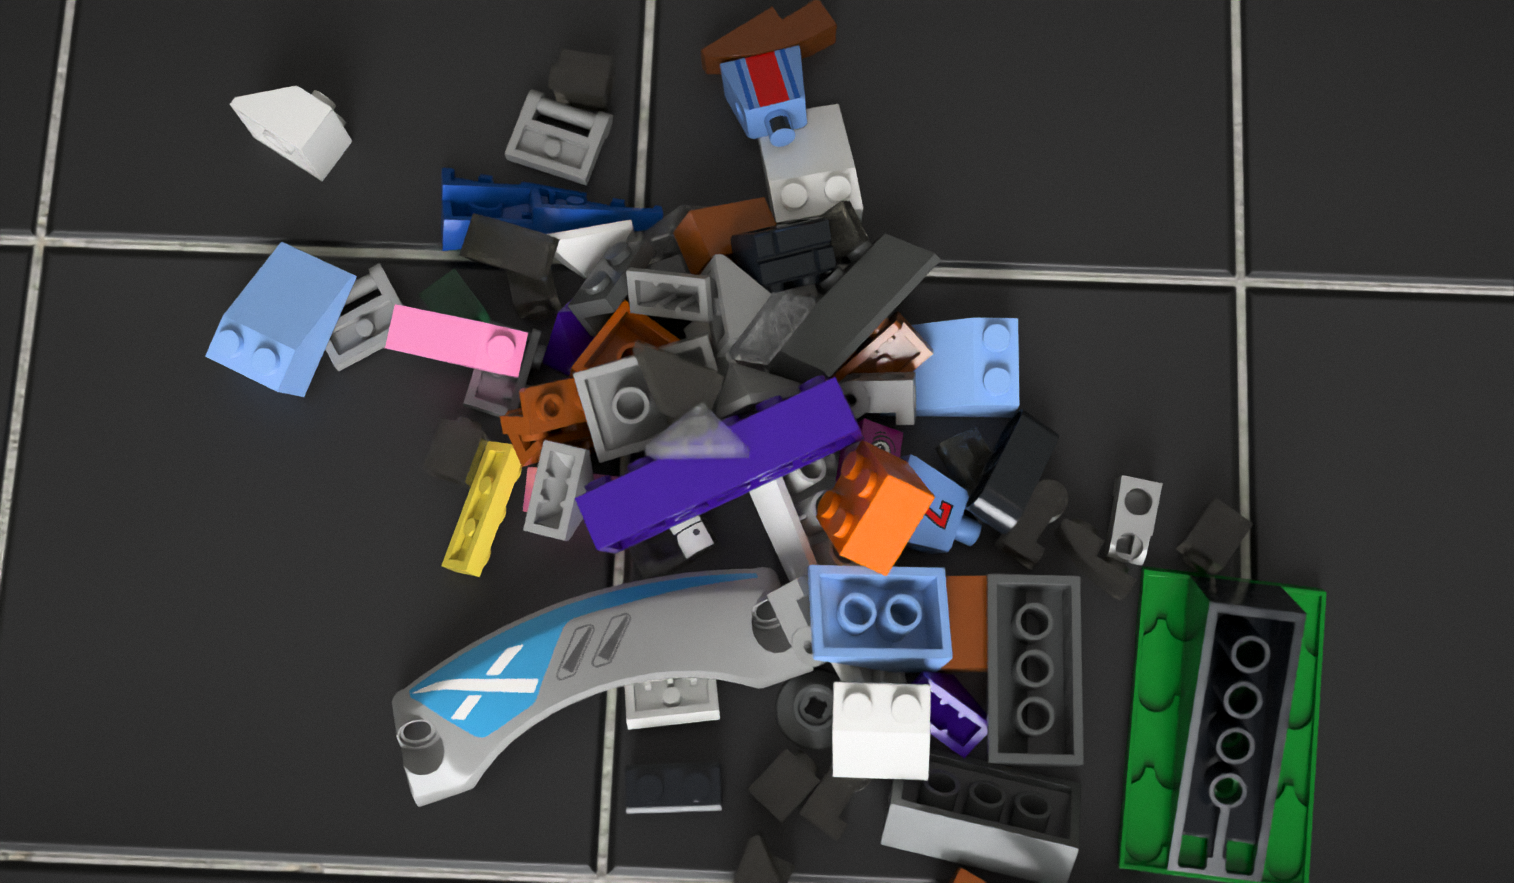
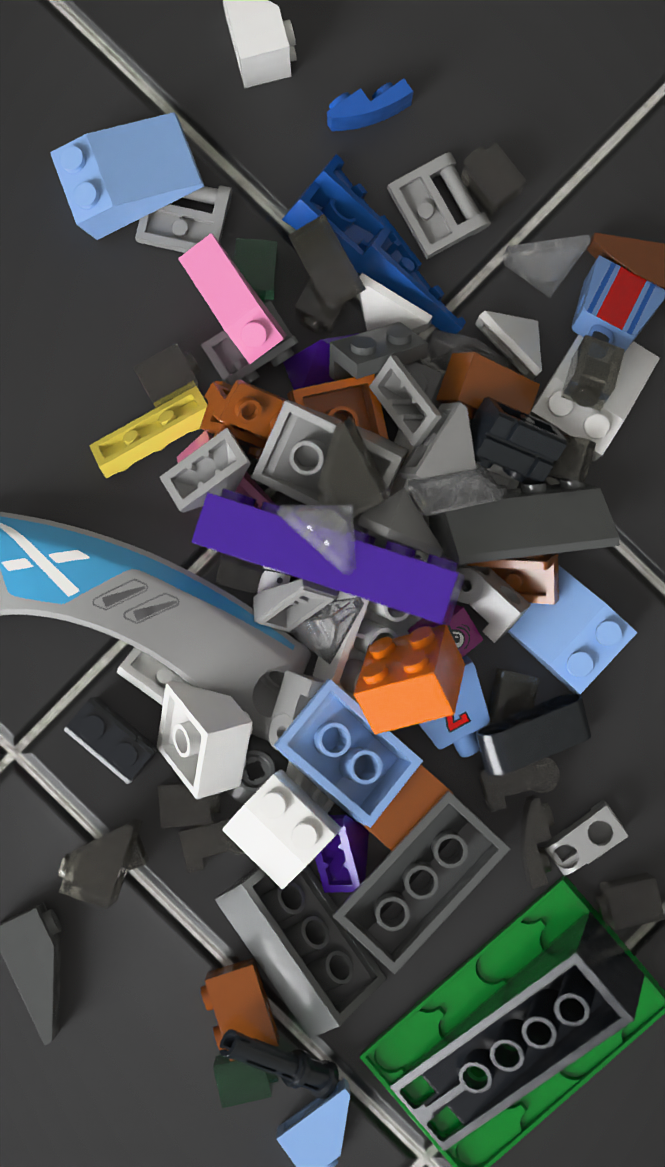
camera: 35 degrees right, 10 degrees up
(433, 117) = (358, 111): none -> blue slope
(682, 107) = (546, 262): none -> clear slope
(710, 186) = (515, 339): none -> white slope
(723, 535) = (291, 603): none -> light grey slope
(749, 713) = (203, 738): none -> white slope
(767, 534) = (328, 627): none -> clear slope
(797, 150) = (593, 373): none -> clear smoke brick

